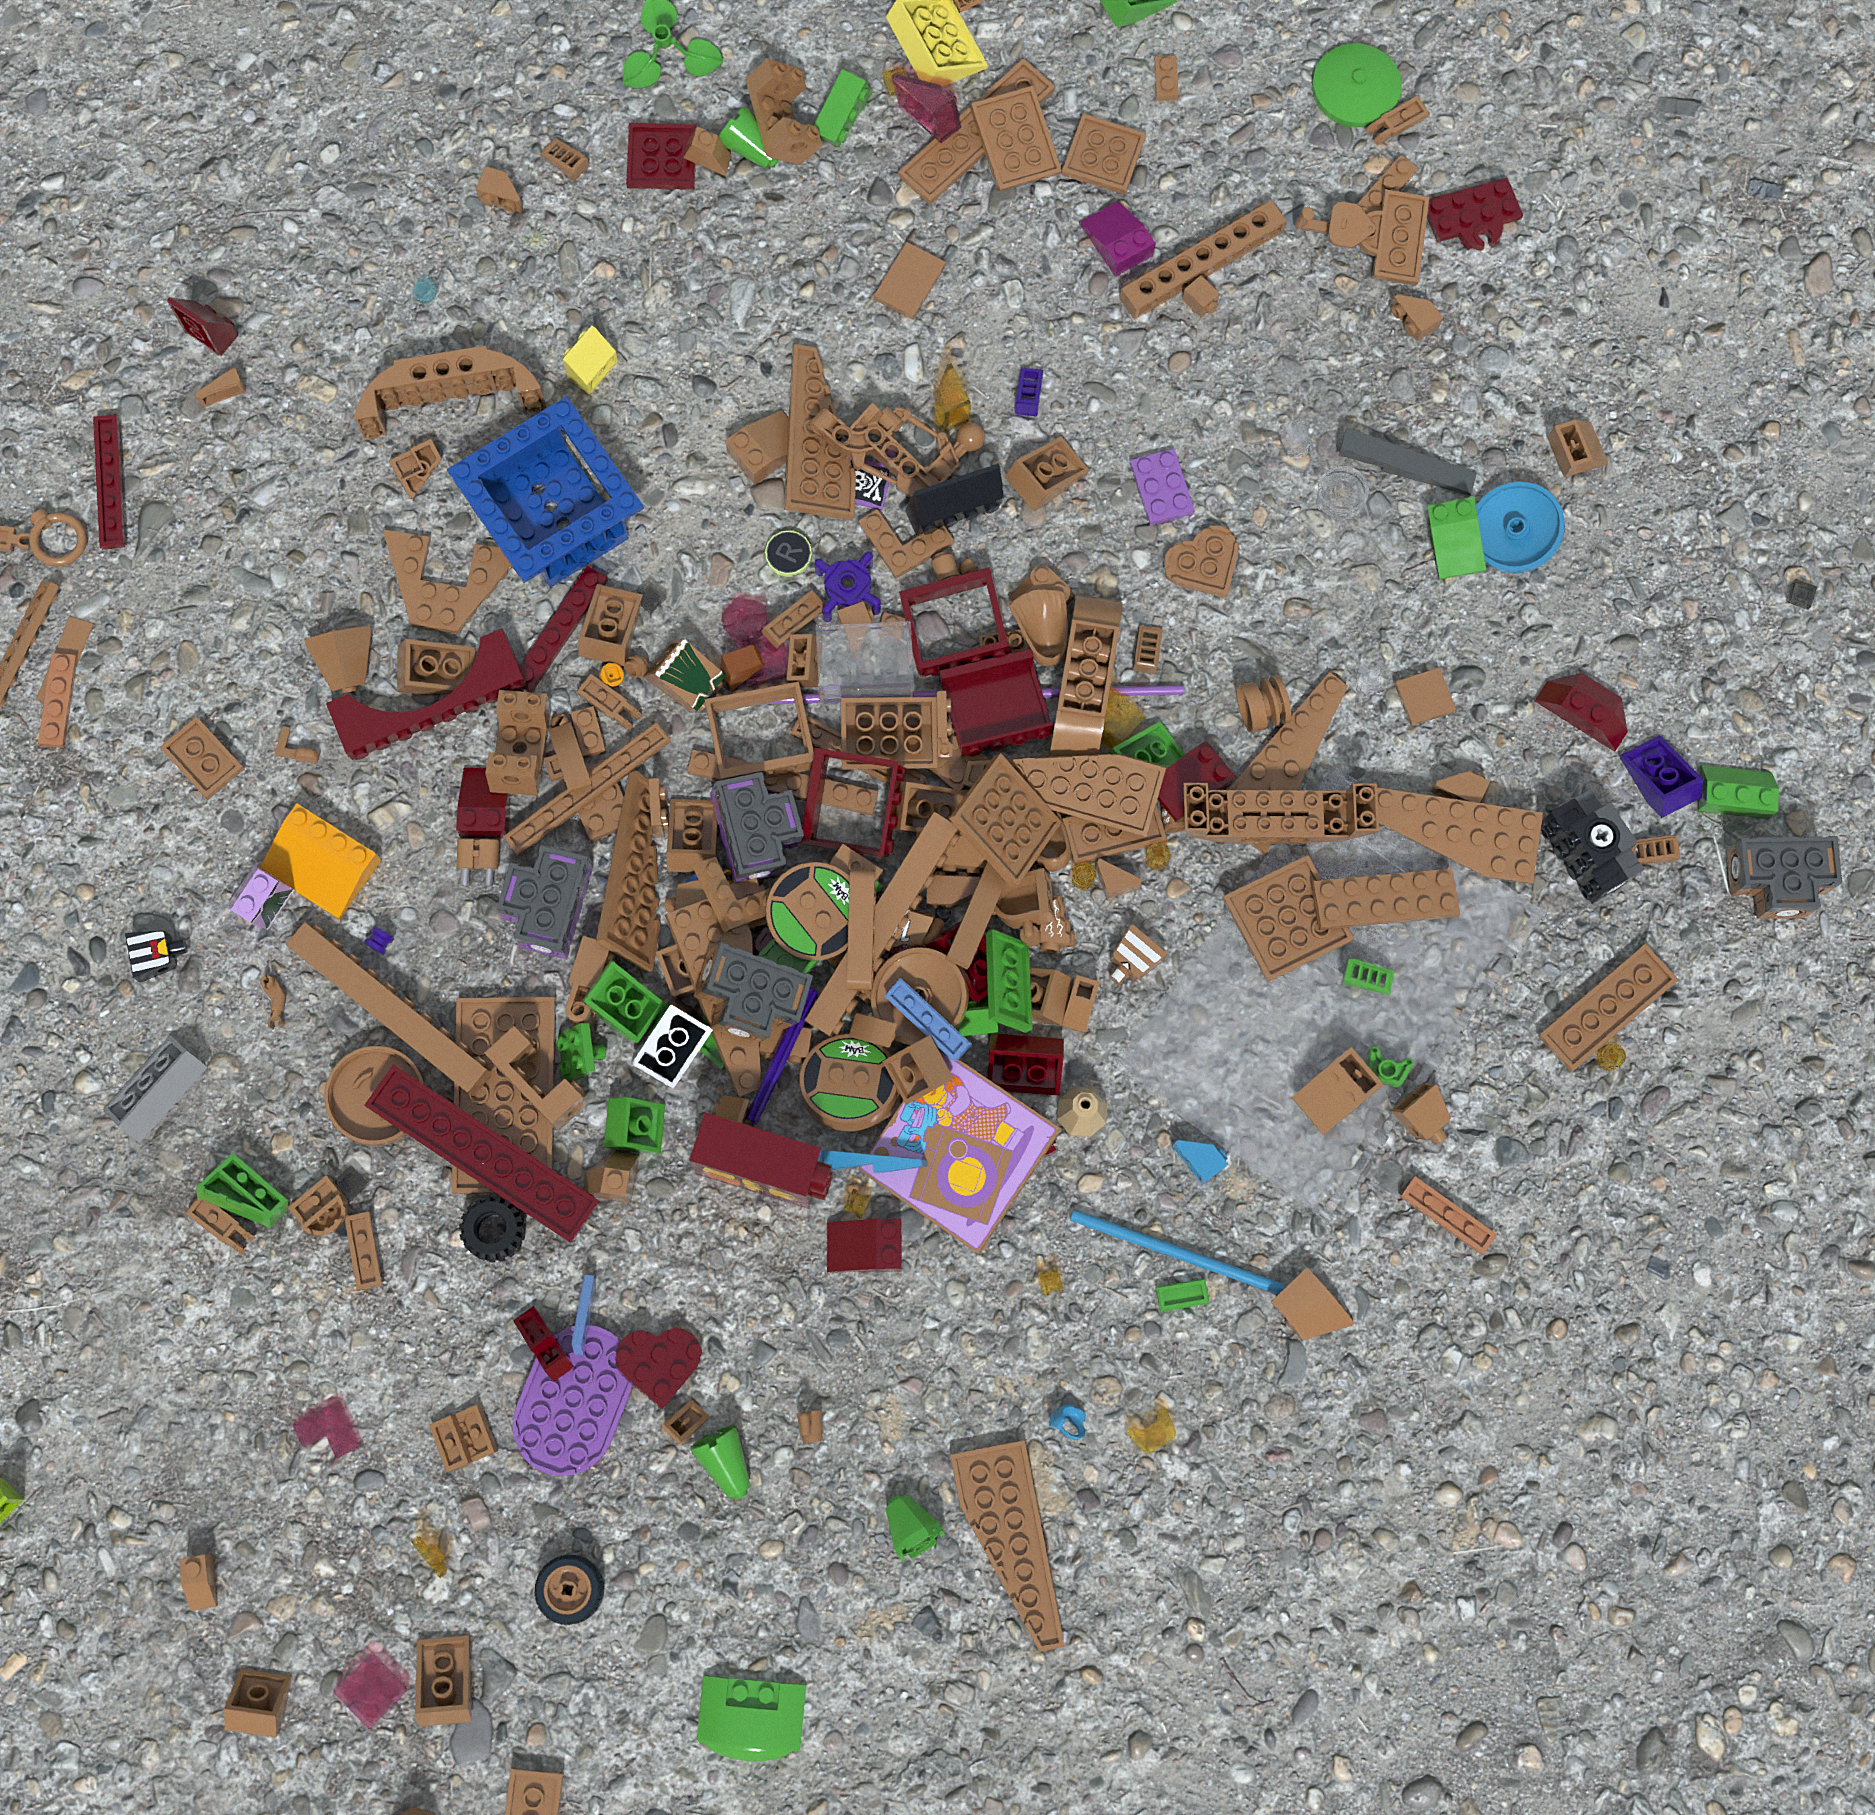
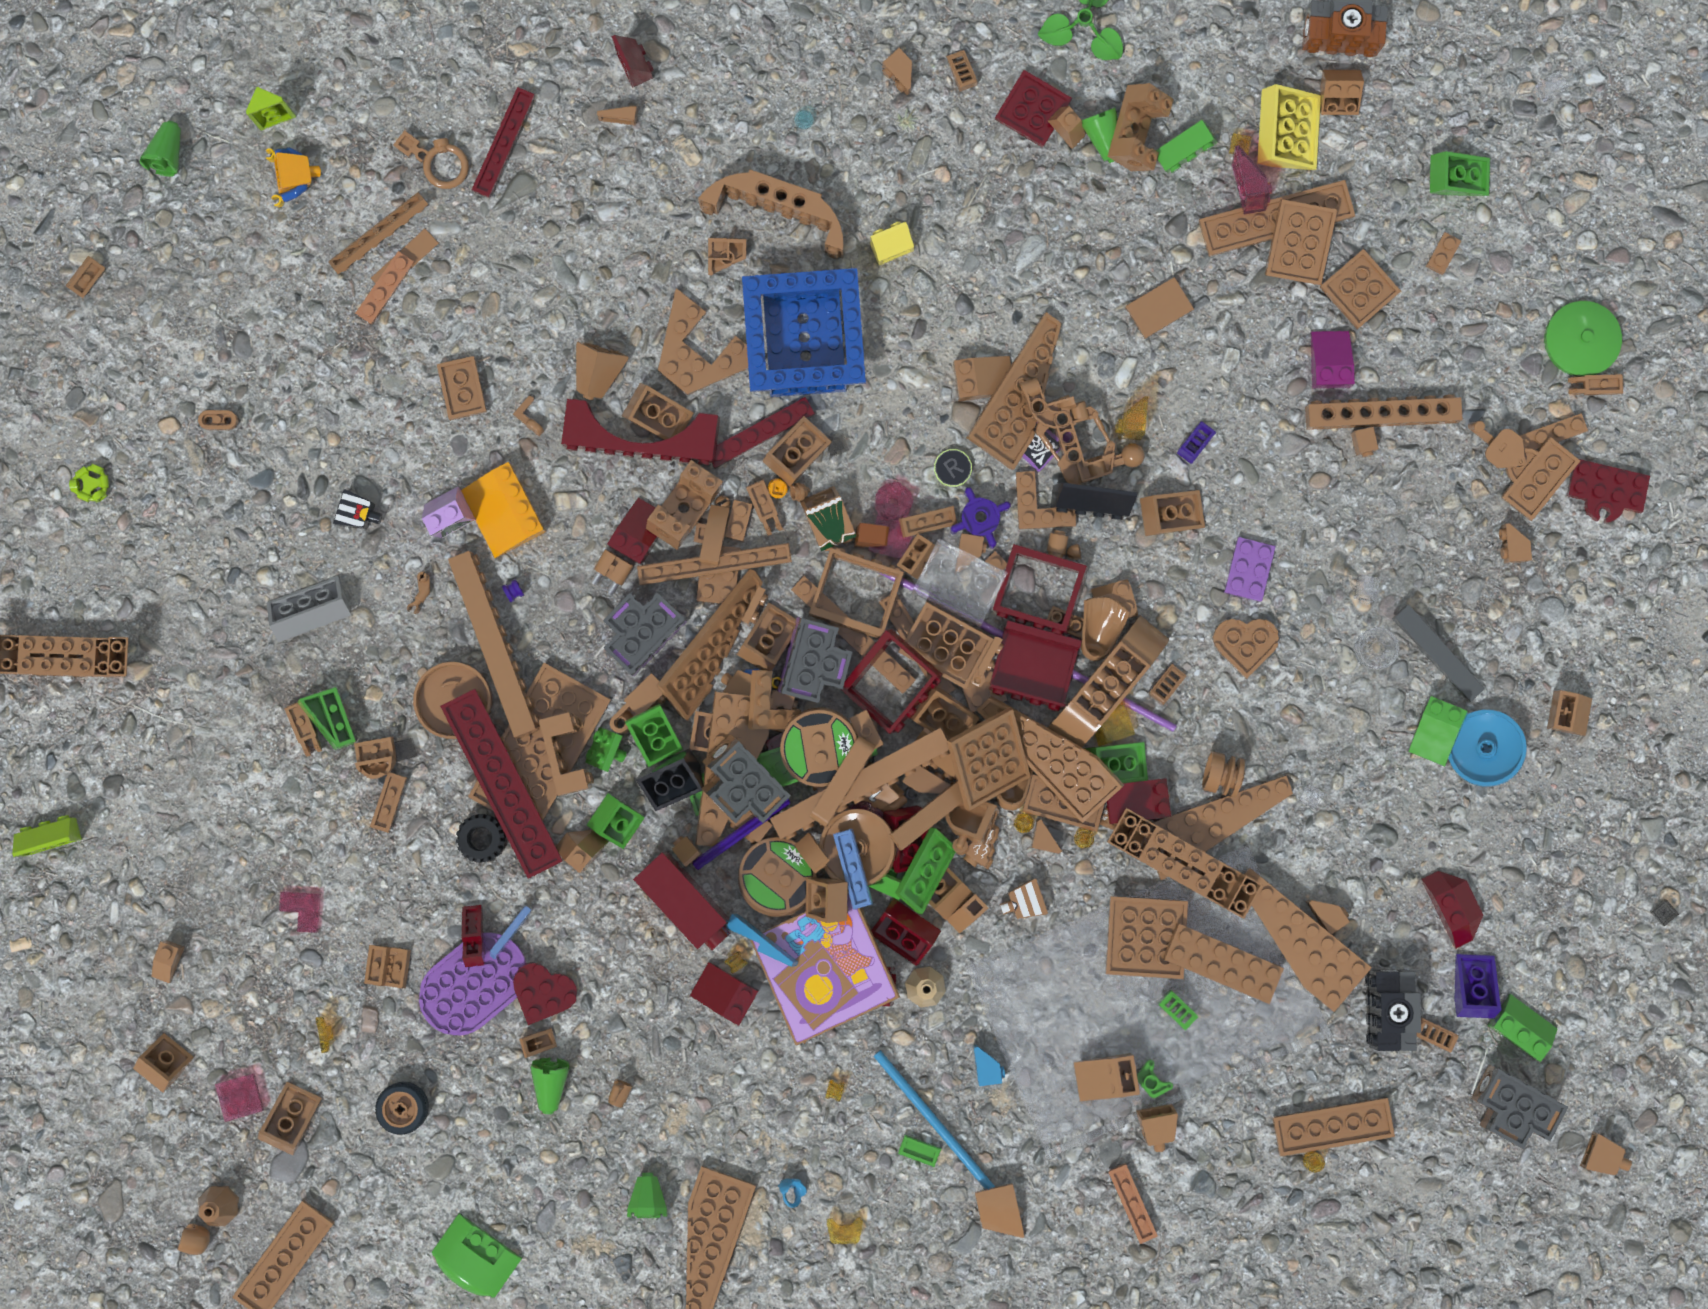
camera: 30 degrees right, 10 degrees up
(1425, 696) = (1343, 832): medium nougat tile -> none

